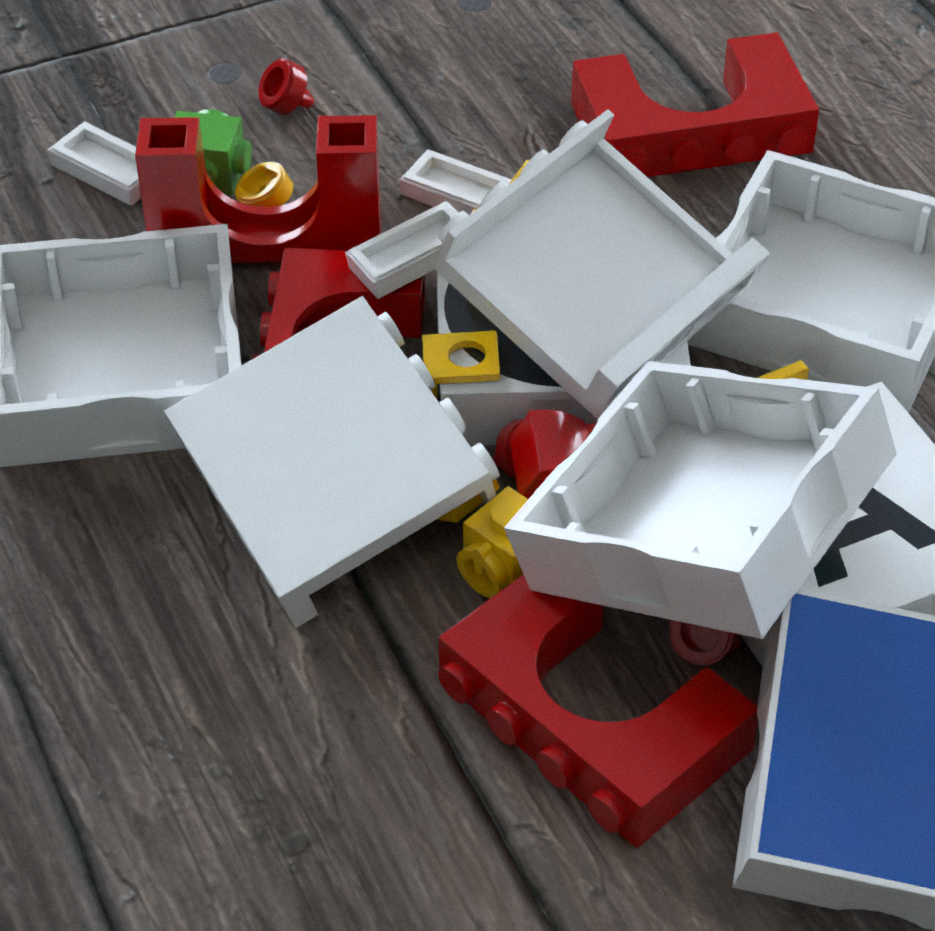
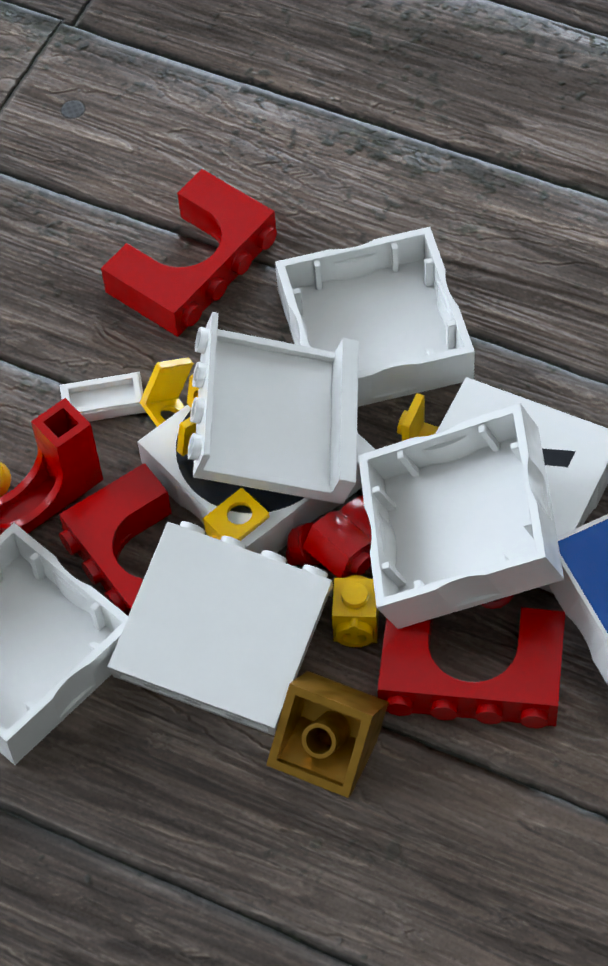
camera: 35 degrees left, 10 degrees up
(344, 651) = (326, 733): none -> pearl gold slope
(401, 252) = (142, 466): white tile -> none

